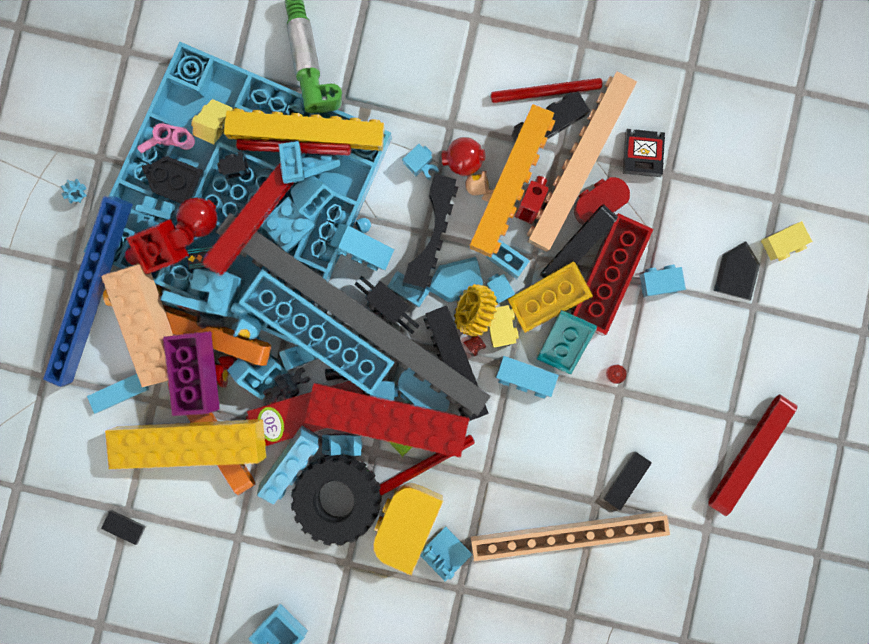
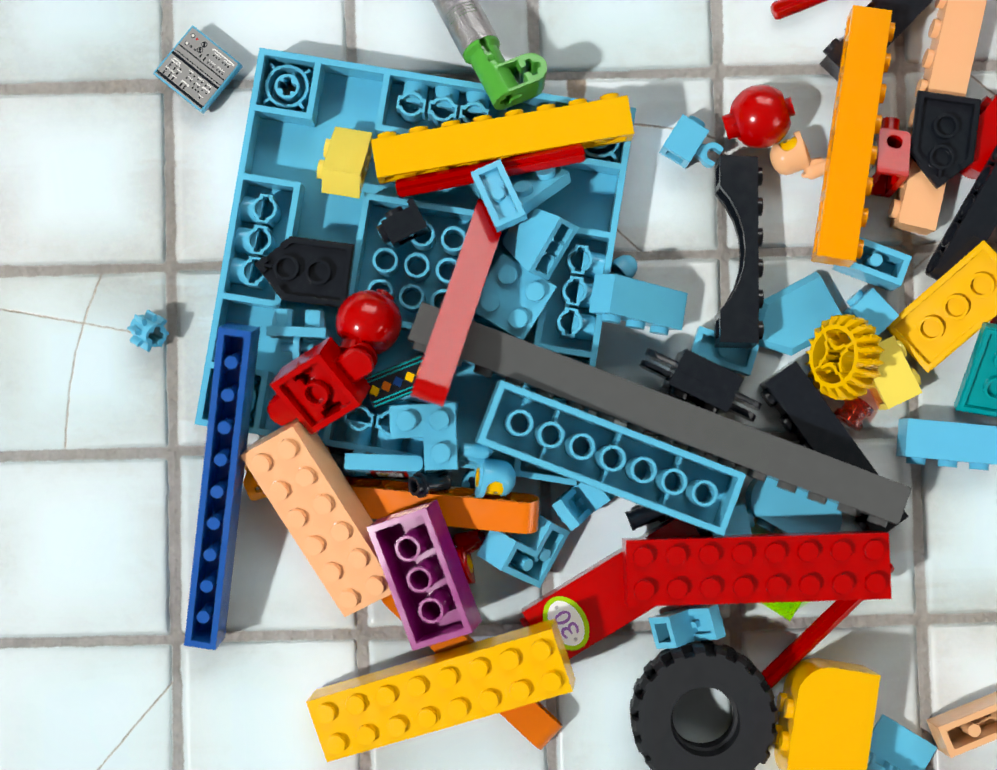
camera: 15 degrees left, 0 degrees up
(116, 393) = (301, 636): medium azure tile -> none
(143, 46) = (197, 69): none -> light grey tile
(173, 138) = (293, 208): bright pink beam -> none
(286, 385) = (576, 555): black pin -> none
(288, 465) = (612, 681): medium azure brick -> none
(568, 194) = (944, 134): none -> black tile

